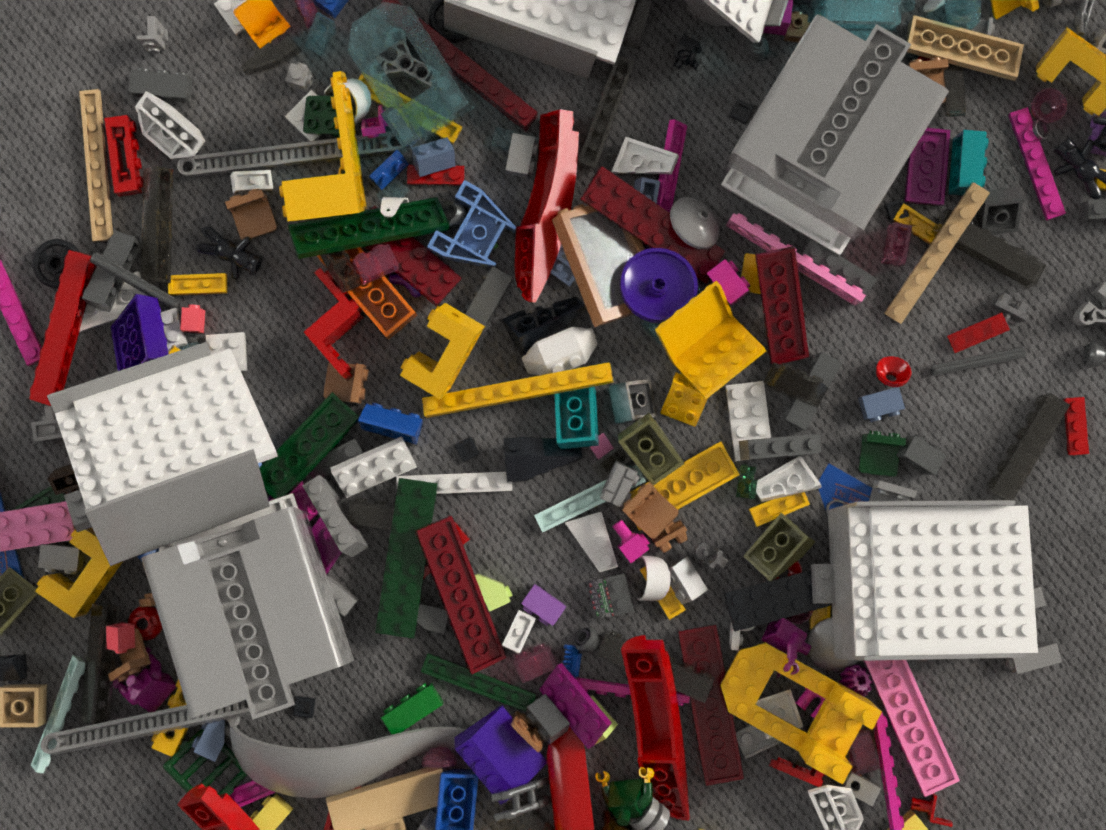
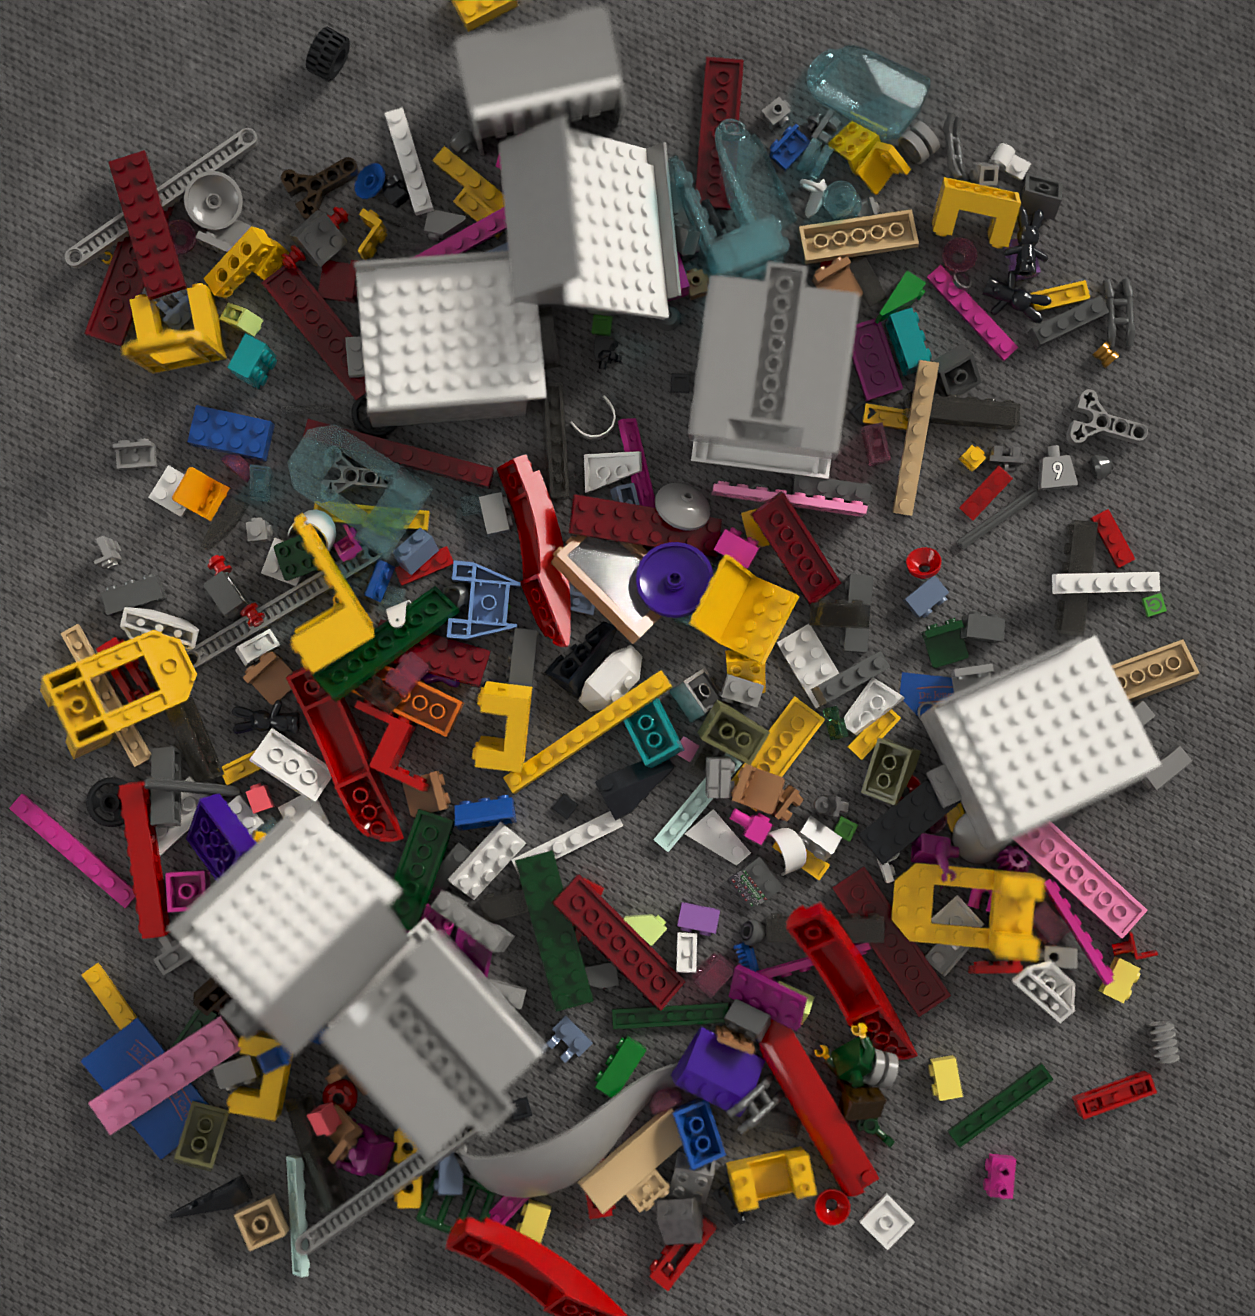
camera: 20 degrees left, 0 degrees up
(62, 169) = (80, 708): none -> yellow bracket
(87, 367) = (185, 888): none -> dark pink brick
(95, 561) = (274, 1059): none -> blue bracket
(235, 302) = (292, 765): none -> white plate
(245, 122) = (228, 596): none -> dark grey brick
(287, 317) = (346, 758): none -> red slope
(380, 660) = (572, 1036): none -> sand blue plate
(649, 127) = (597, 437): none -> white piece
(674, 414) = (741, 690): none -> light grey bracket
(693, 27) = (601, 325): none -> bright green tile
(714, 583) = (845, 828): none -> bright green tile
(982, 295) = (972, 457): none -> yellow brick
(983, 119) = (903, 296): none -> green slope
(1051, 341) = (1056, 471): none -> light grey torso
(1053, 463) = (1105, 582): none -> white plate
(1067, 565) = (1156, 671): none -> tan arch
(1087, 503) = (1154, 605): none -> bright green tile

